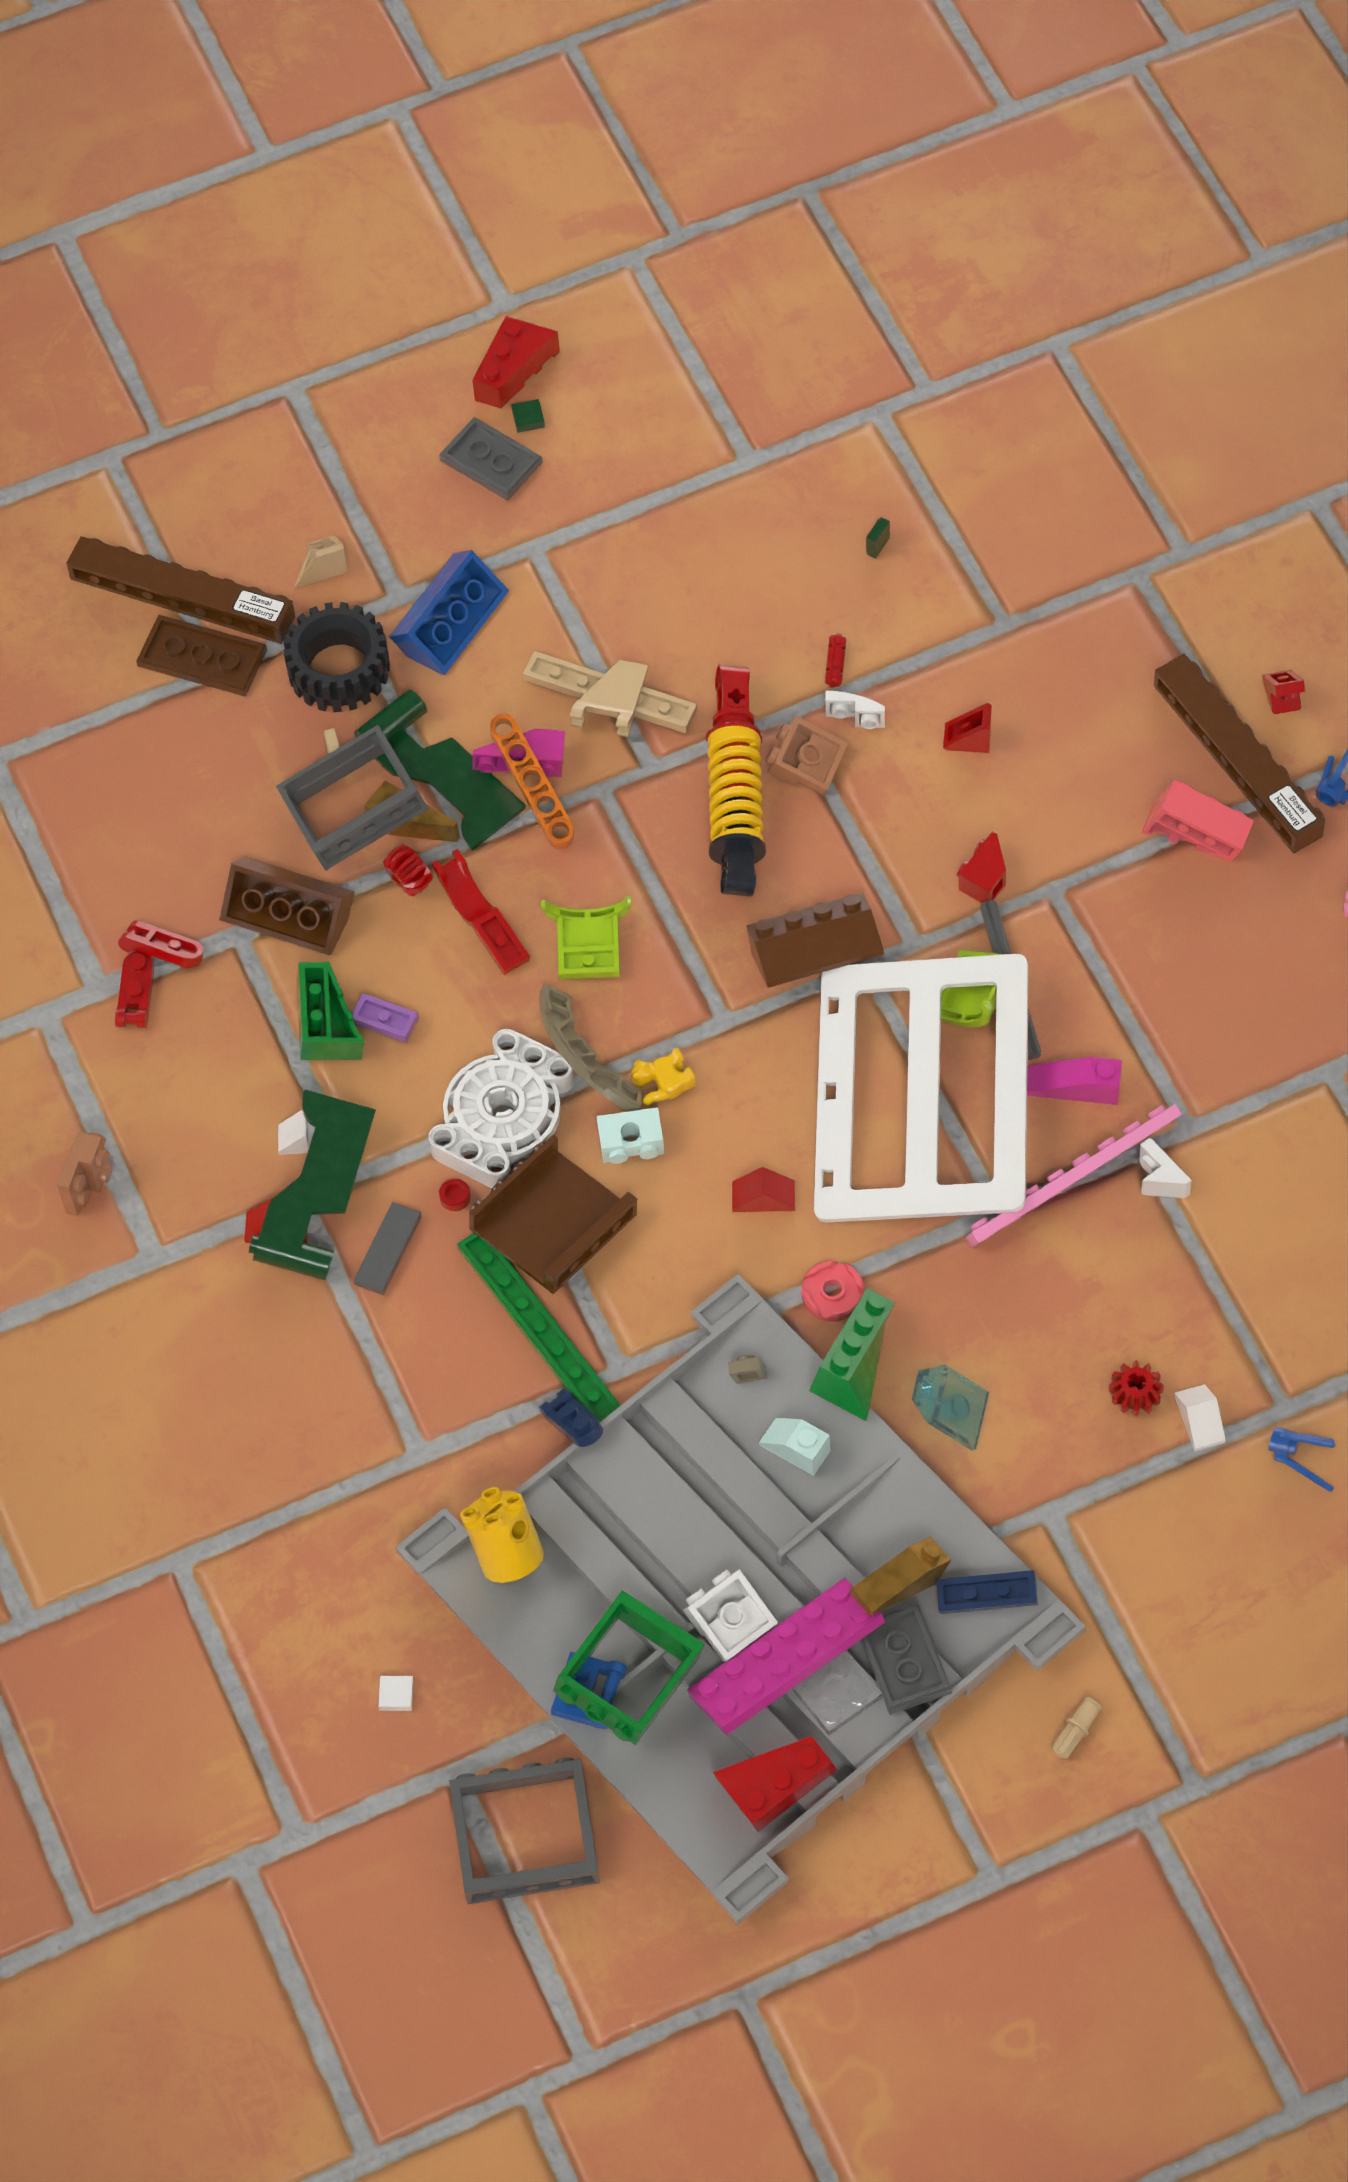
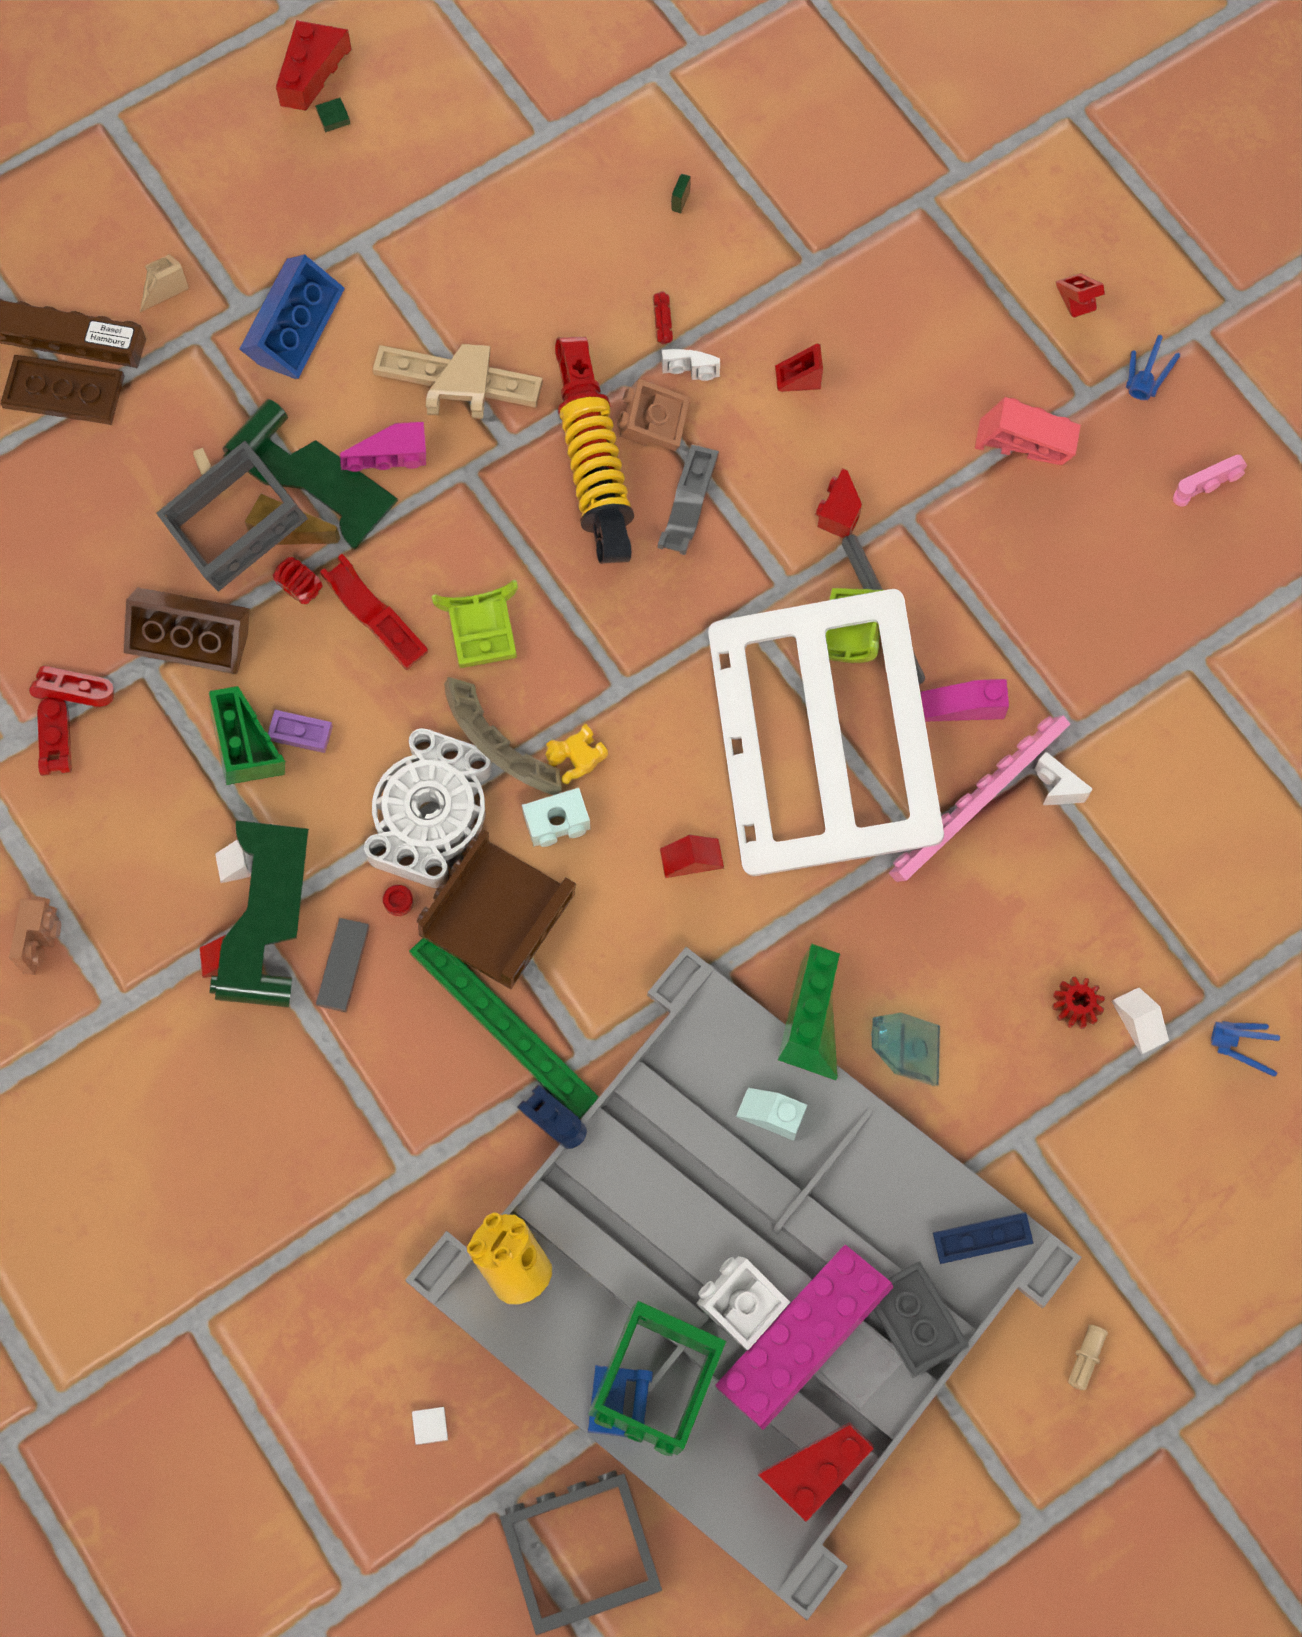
camera: 15 degrees left, 10 degrees up
(329, 629) = (182, 348): black tyre -> none
(490, 458) = (305, 161): dark grey tile -> none
(527, 767) = (399, 462): orange beam -> none
(747, 1369) = (712, 1042): dark tan plate -> none
(814, 939) = (696, 598): reddish brown slope -> none
(828, 843) = (689, 499): none -> dark grey piece
(828, 1307) = (774, 962): coral tile -> none
(902, 1576) = (901, 1240): pearl gold slope -> none
(1239, 753) = (1052, 360): reddish brown brick -> none

